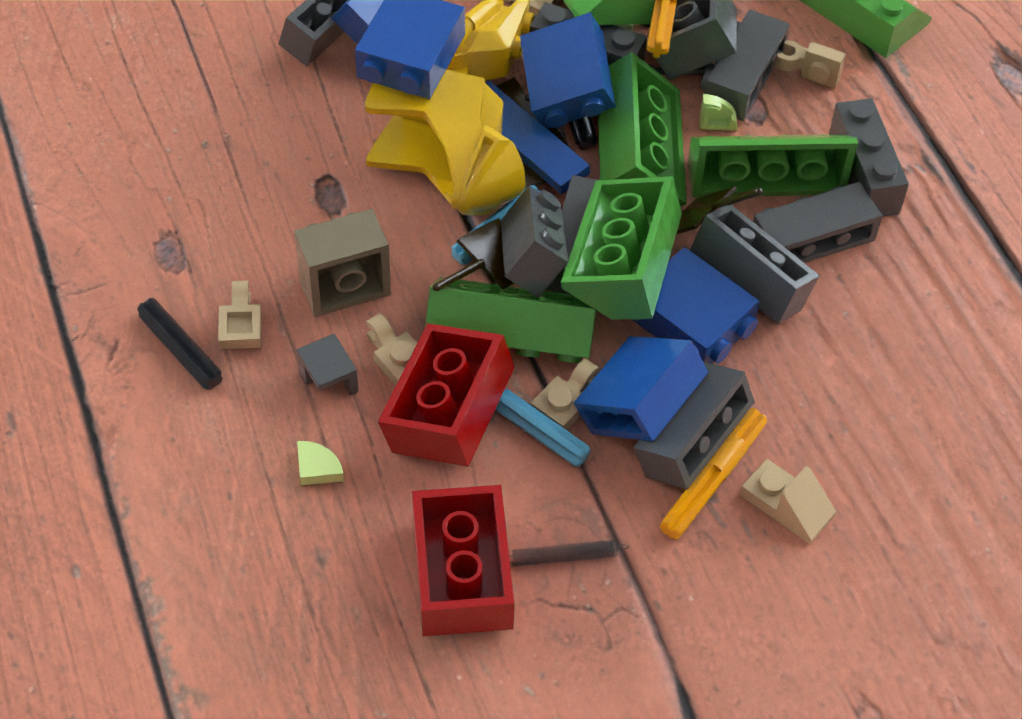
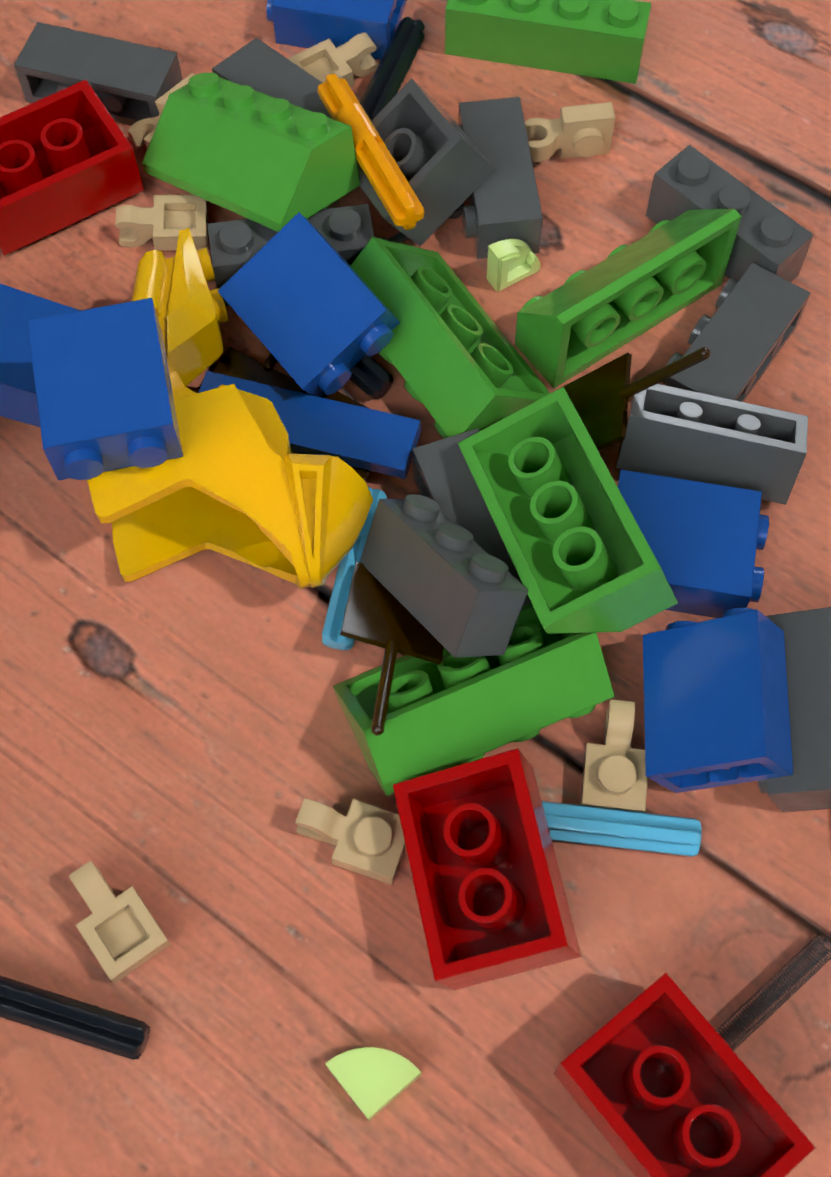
camera: 30 degrees left, 10 degrees up
(327, 364) = (290, 924): dark grey panel -> none
(343, 262) = (206, 754): dark tan brick -> none

